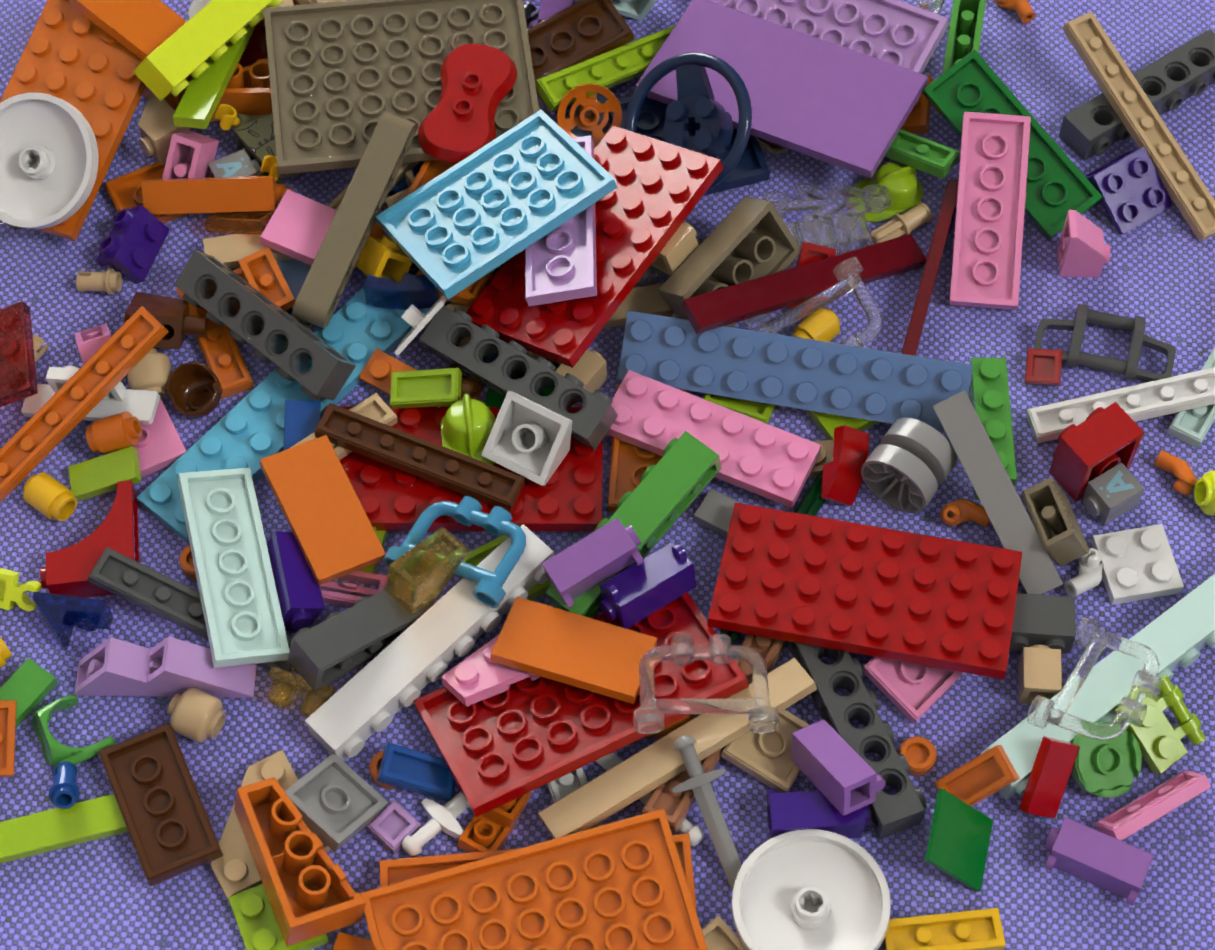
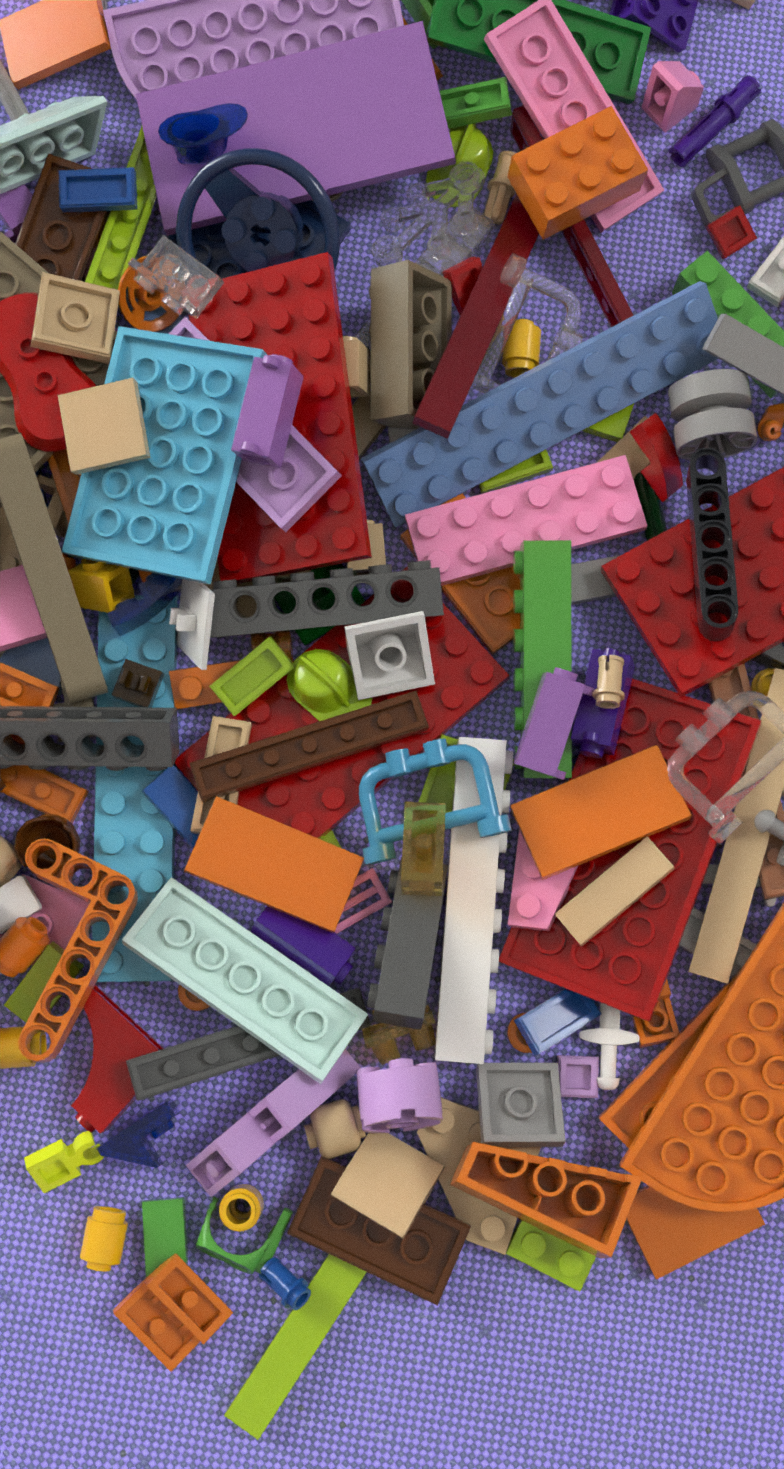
camera: 40 degrees left, 20 degrees up
(86, 710) = (232, 1216): none -> yellow brick
(147, 455) = (80, 944): none -> orange beam
(195, 772) = (388, 1182): none -> tan slope
(257, 722) = (399, 1096): none -> lavender brick
(348, 337) = (137, 684): none -> dark brown tile
(472, 157) = (104, 426): none -> tan tile
(518, 86) = (75, 318): none -> tan tile
(534, 709) = (614, 891): none -> tan tile
(582, 217) = (267, 410): none -> medium lavender brick
(609, 110) = (178, 276): none -> clear bracket
(612, 30) = (97, 190): none -> blue tile
(651, 568) = (609, 682): none -> tan pin
(709, 38) = (202, 133): none -> clear blue piece
(818, 535) = (713, 526): none -> black beam
(951, 240) = (577, 172): none -> orange brick
(1105, 290) = (725, 111): none -> dark purple pin

